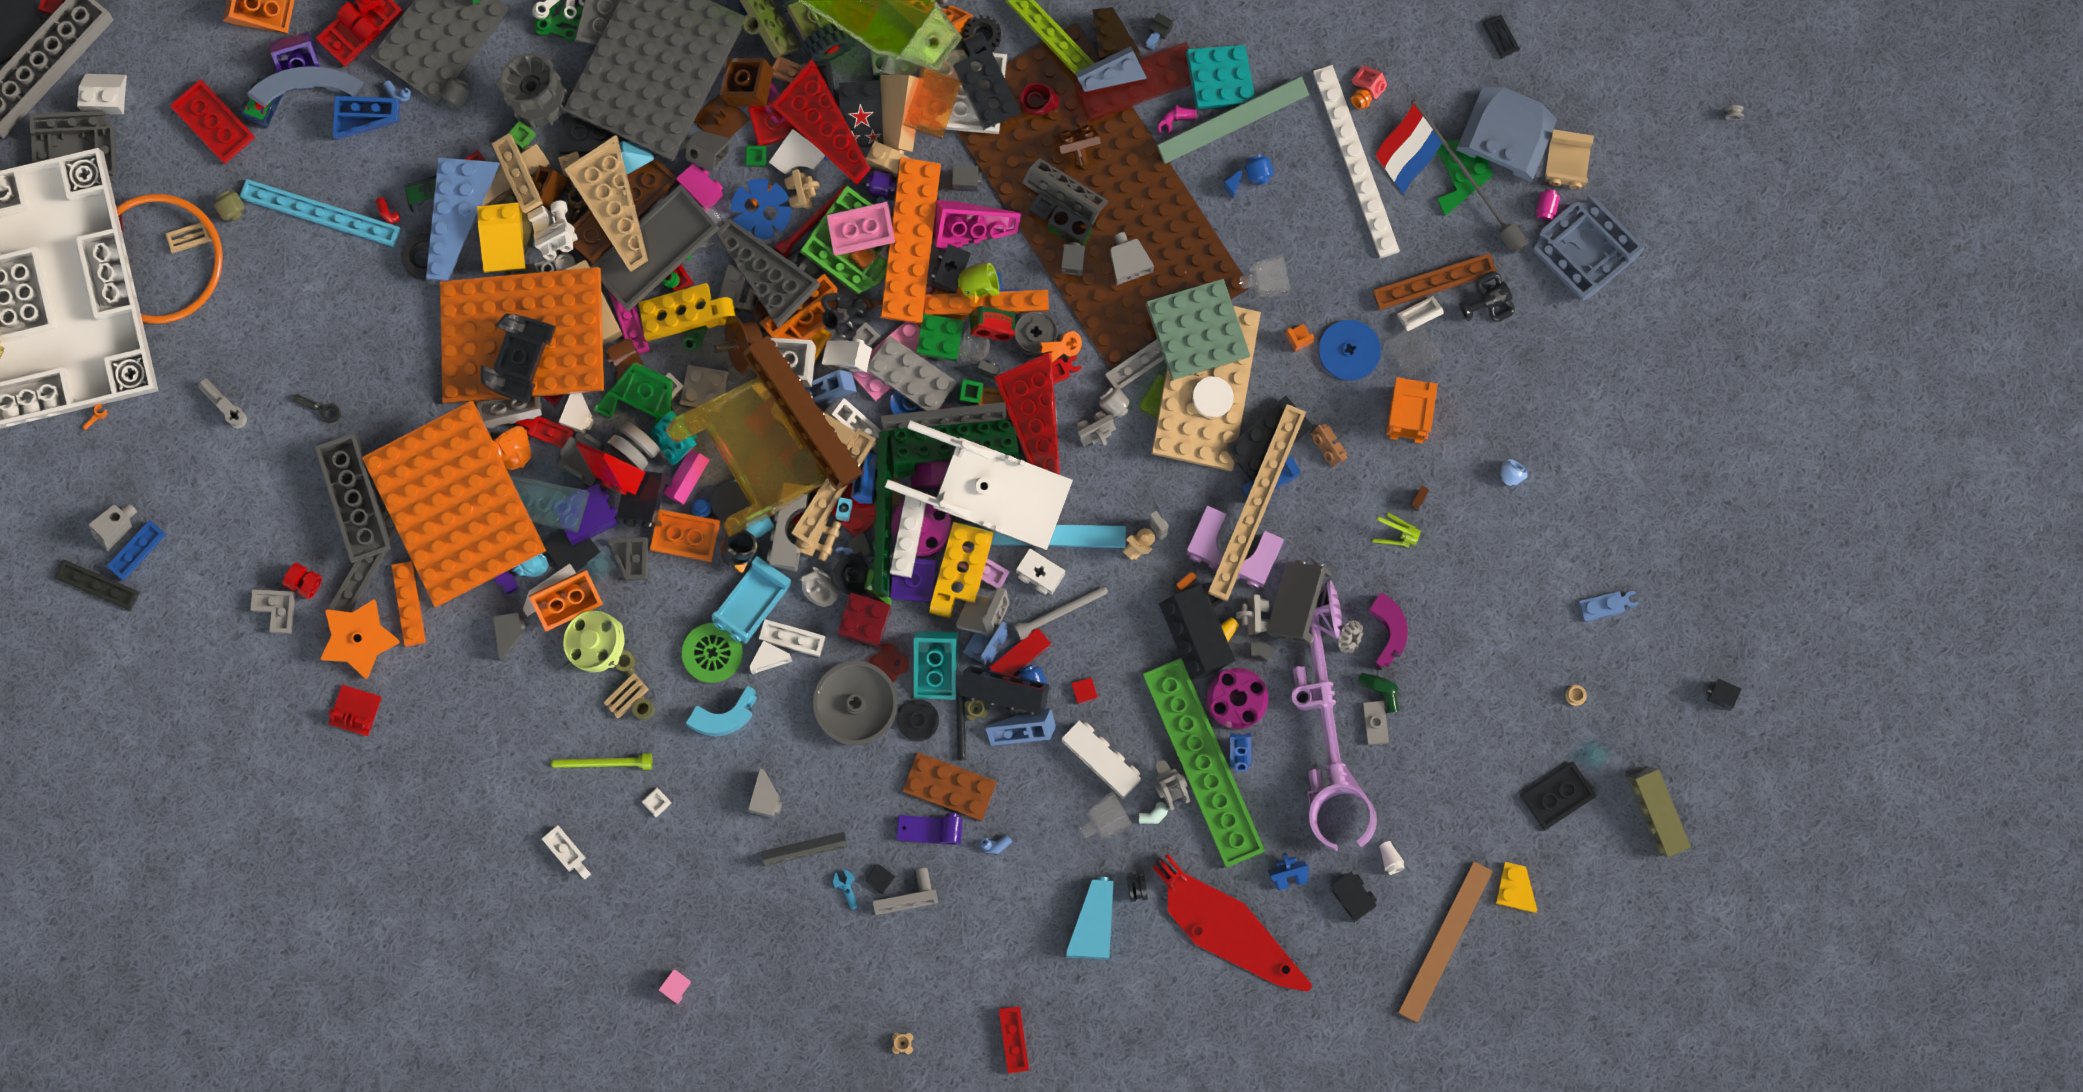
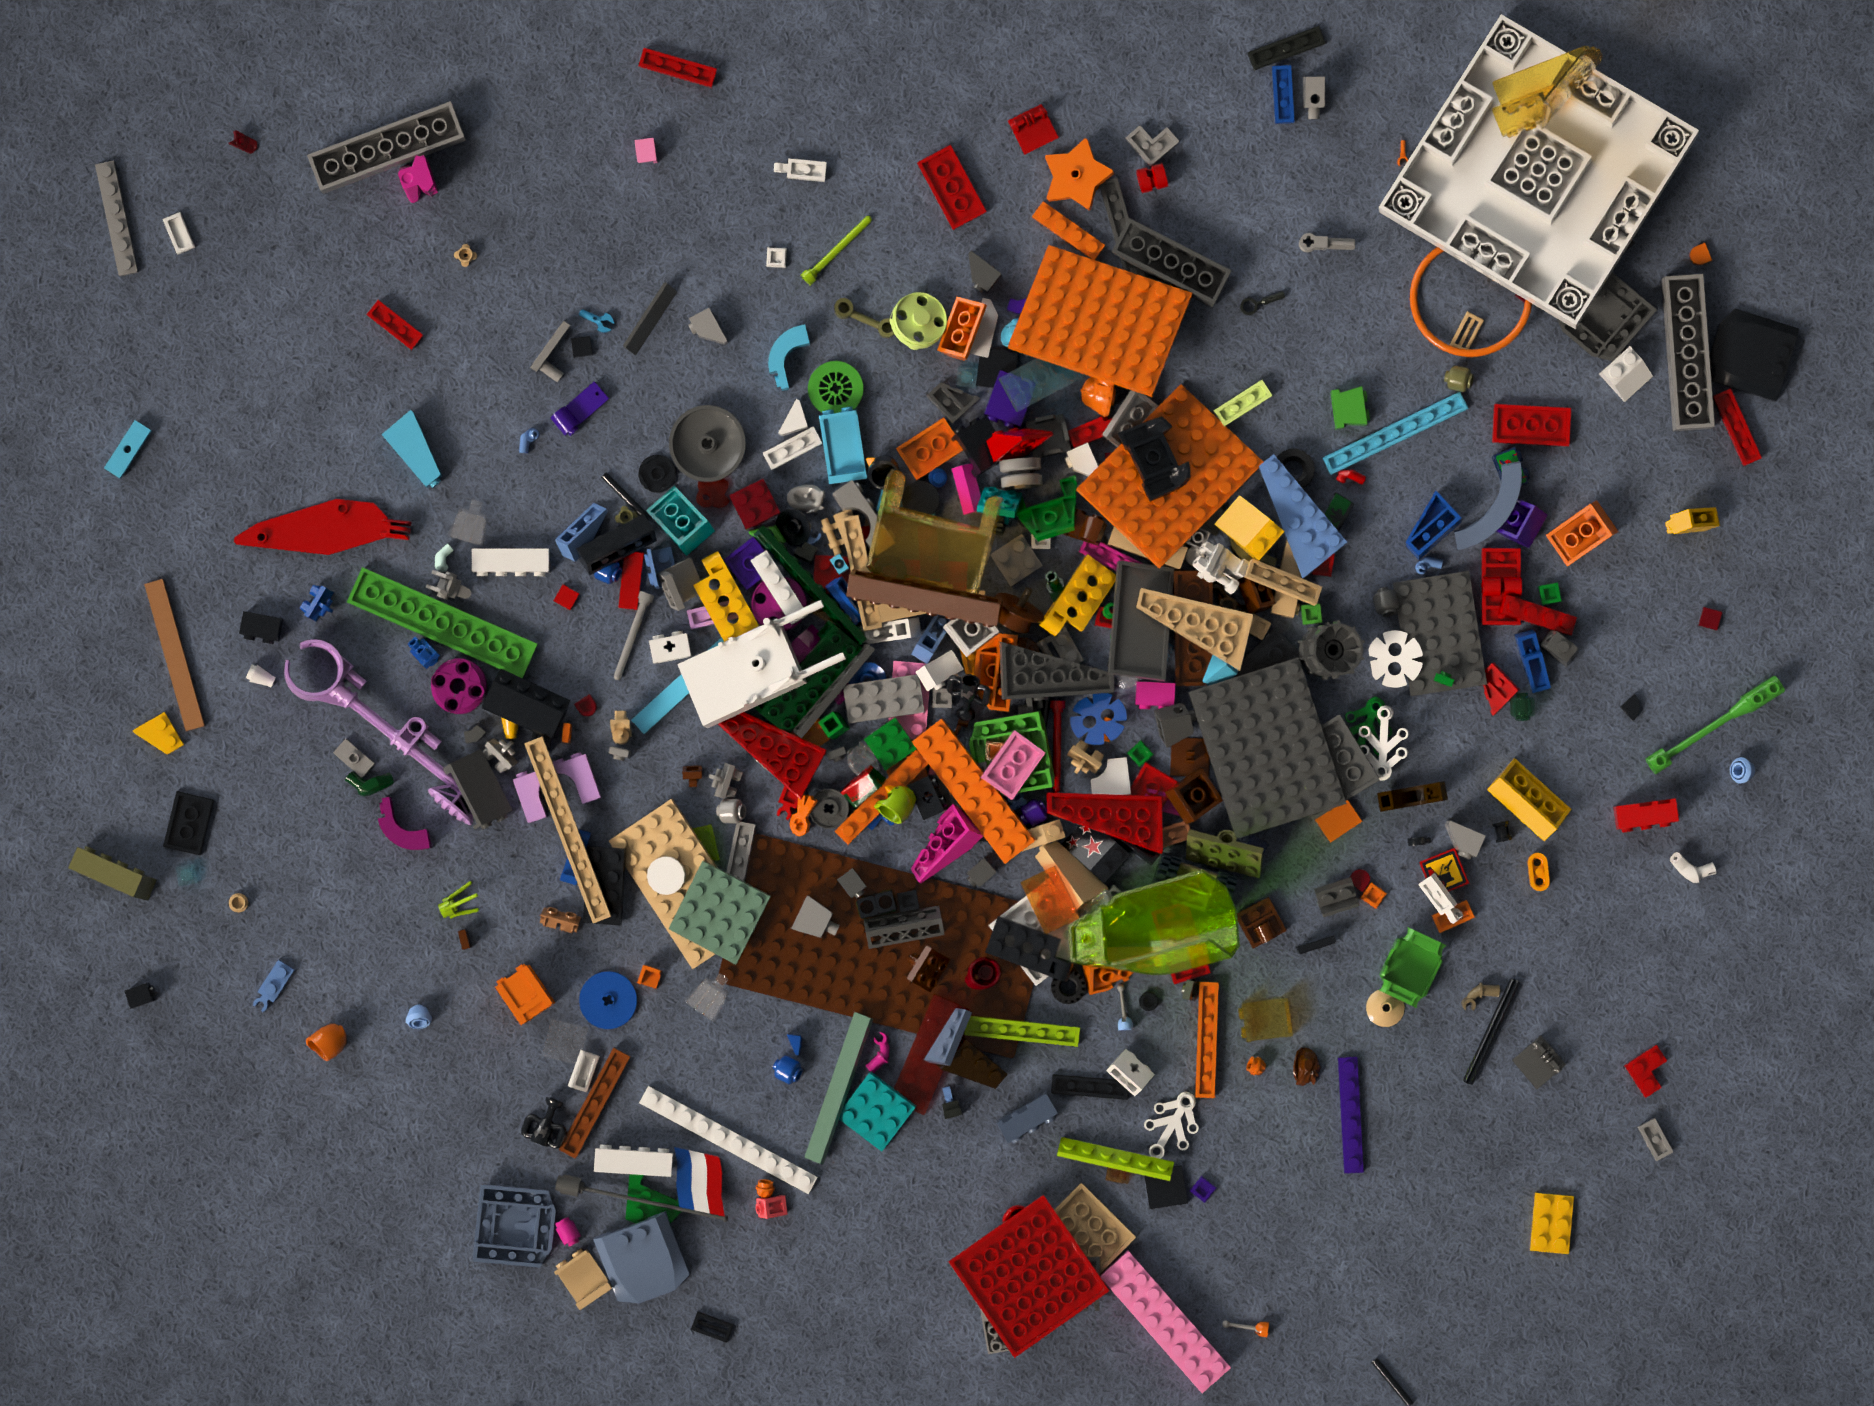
camera: 140 degrees right, 10 degrees up
(334, 262) = (1349, 407): none -> bright green hips
(410, 343) = (1243, 403): none -> yellowish green plate
(464, 724) = (951, 187): none -> red plate
(488, 29) = (1408, 666): none -> white piece
(583, 1031) = (677, 67): none -> red plate
(613, 707) = (864, 291): tan tile -> none
(949, 786) = (594, 449): dark orange plate -> none
(1116, 459) = (692, 773): none -> reddish brown tile
(1140, 888) = (405, 499): black wheel -> none
(1150, 590) = (586, 706): none -> dark red tile
(1350, 636) = (422, 799): light grey gear -> none
(1445, 207) = (633, 1161): none -> white brick
(1603, 518) = (328, 1041): none -> orange piece

